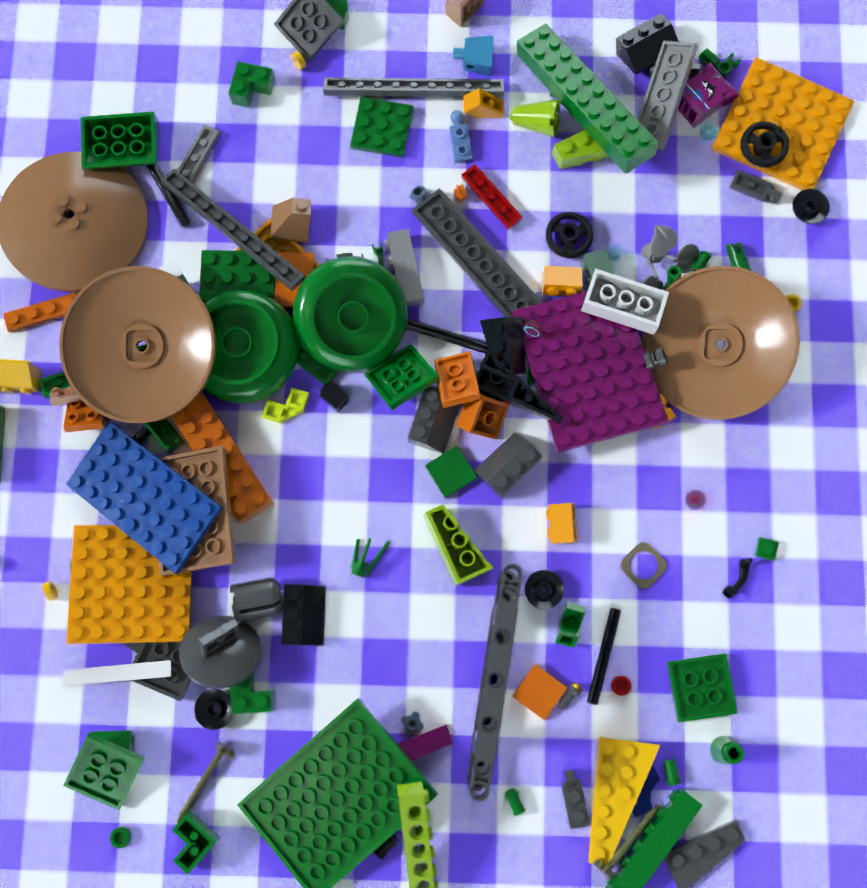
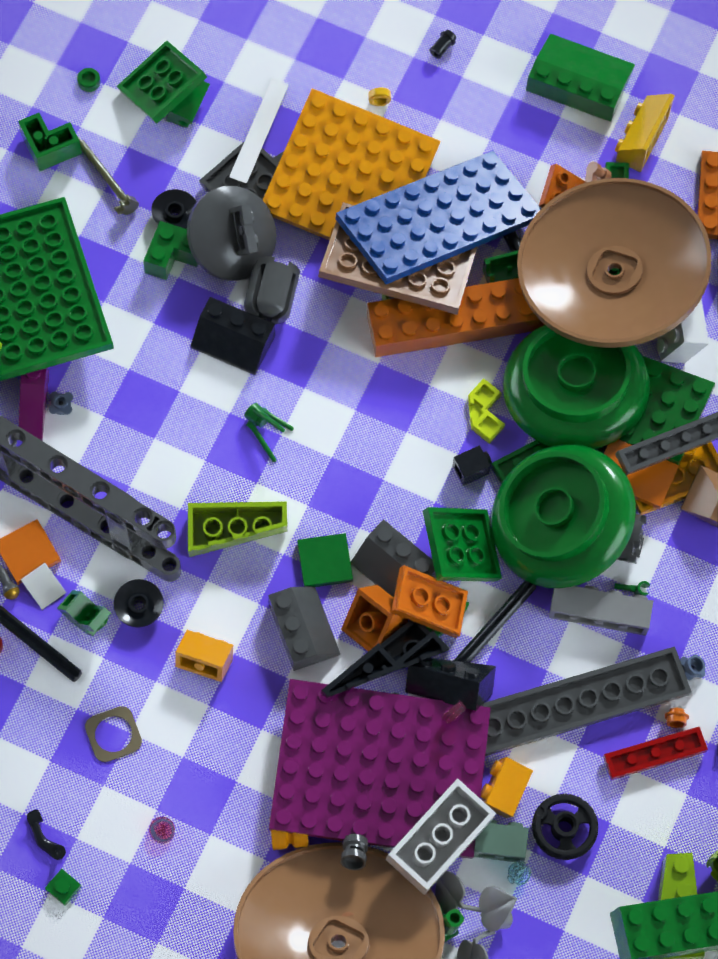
camera: 110 degrees right, 10 degrees down
(560, 667) = (43, 586): none -> white sticker

